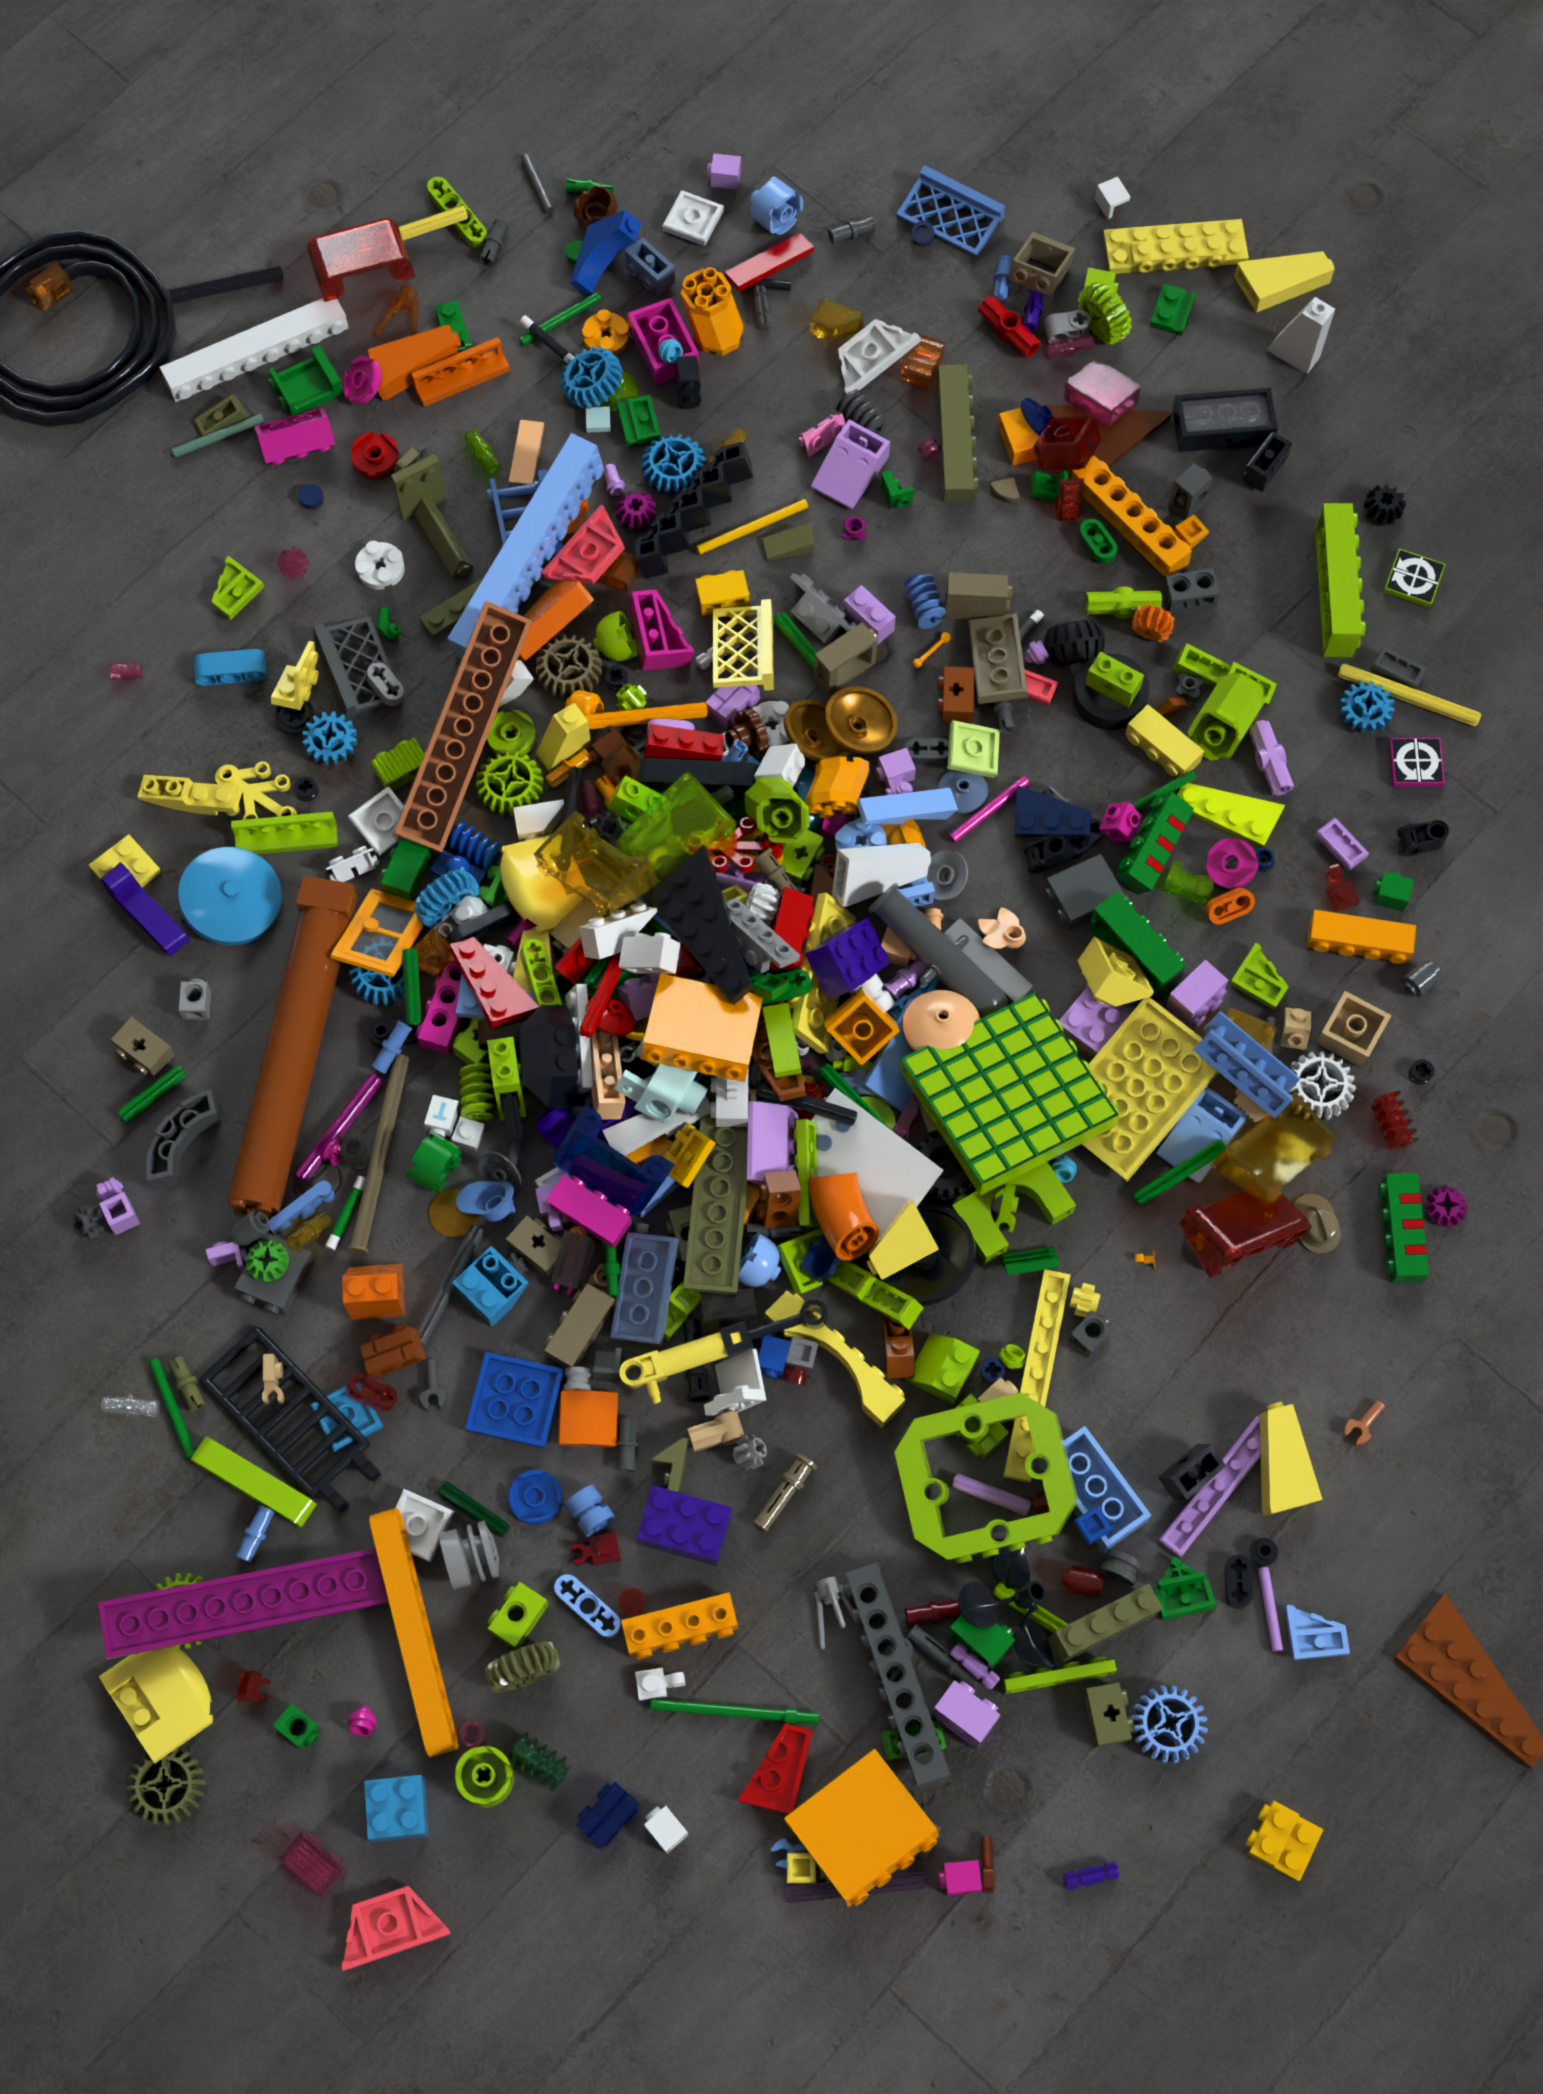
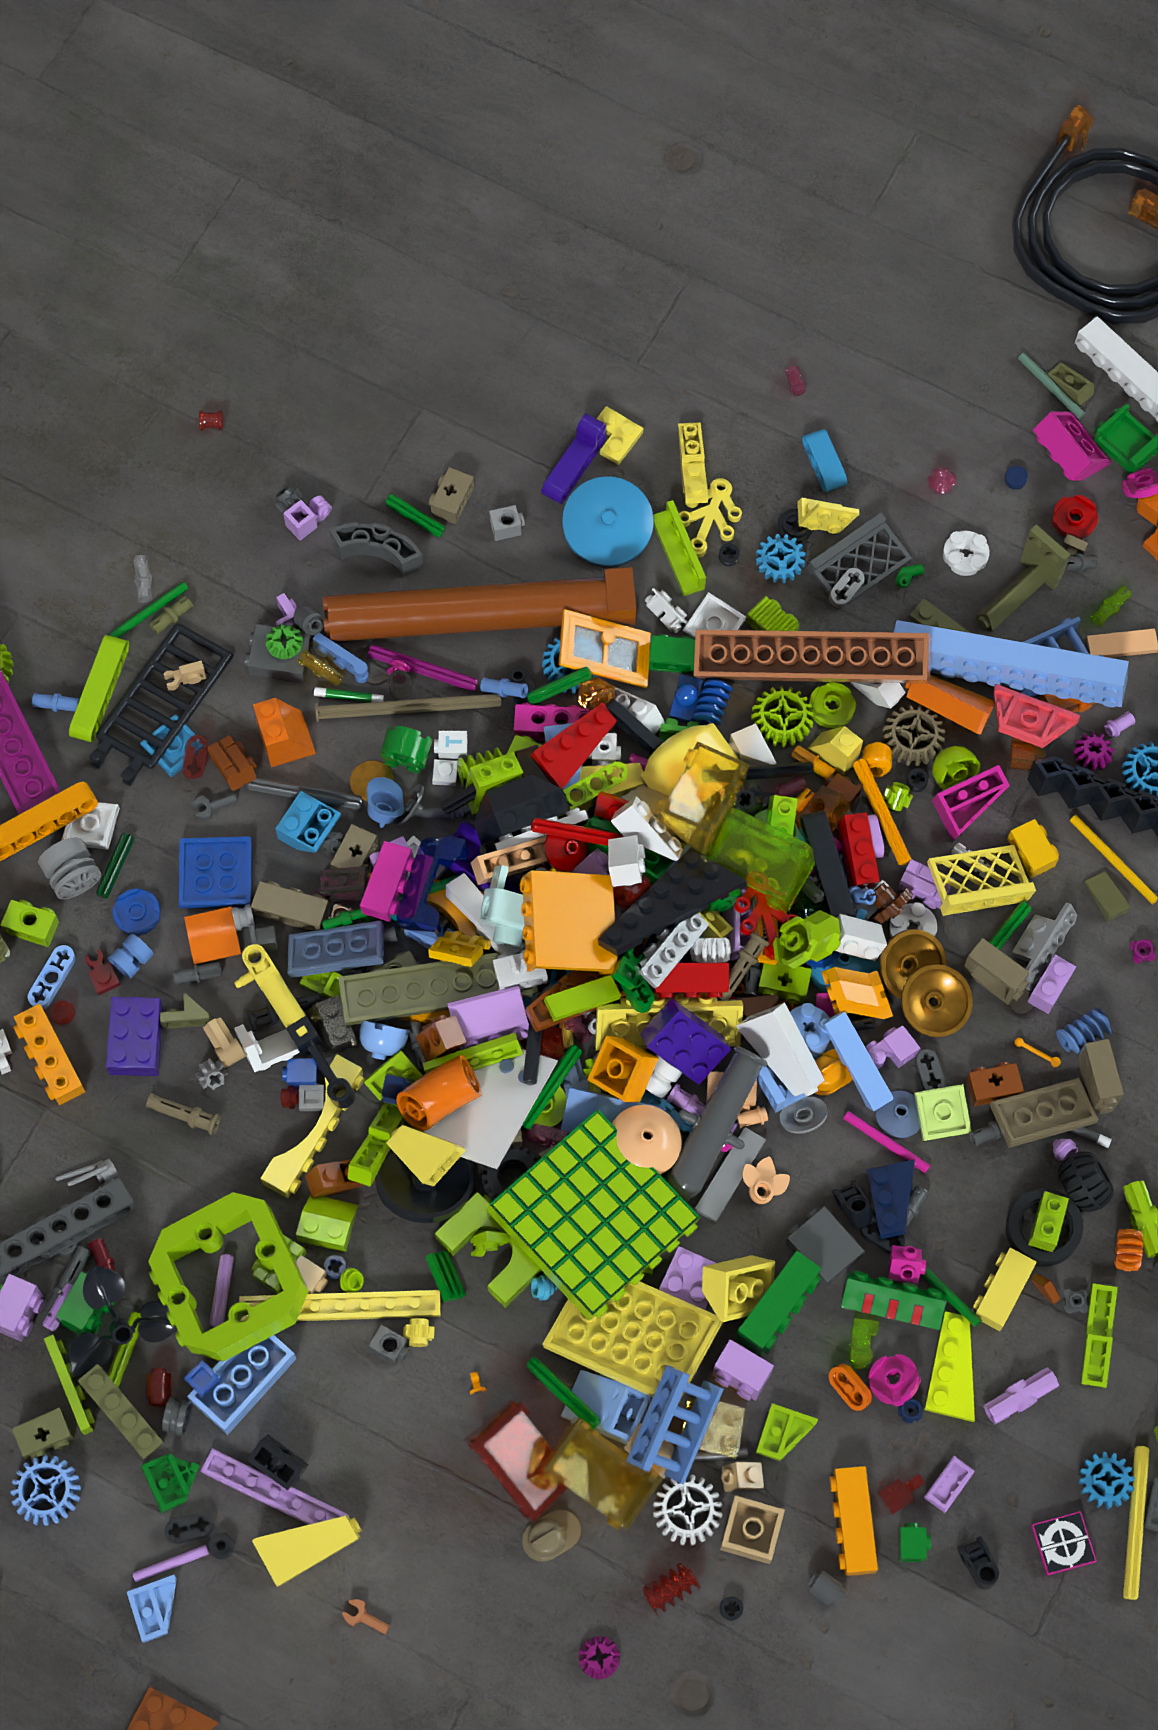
camera: 75 degrees right, 0 degrees up
(235, 589) = (902, 442): lime wing -> none
(444, 895) = (652, 687): dark azure gear -> none
(1040, 688) = (1029, 1159): coral tile -> none
(1227, 716) = (1048, 1341): lime brick -> none
(1404, 1228) = (564, 1618): green brick -> none

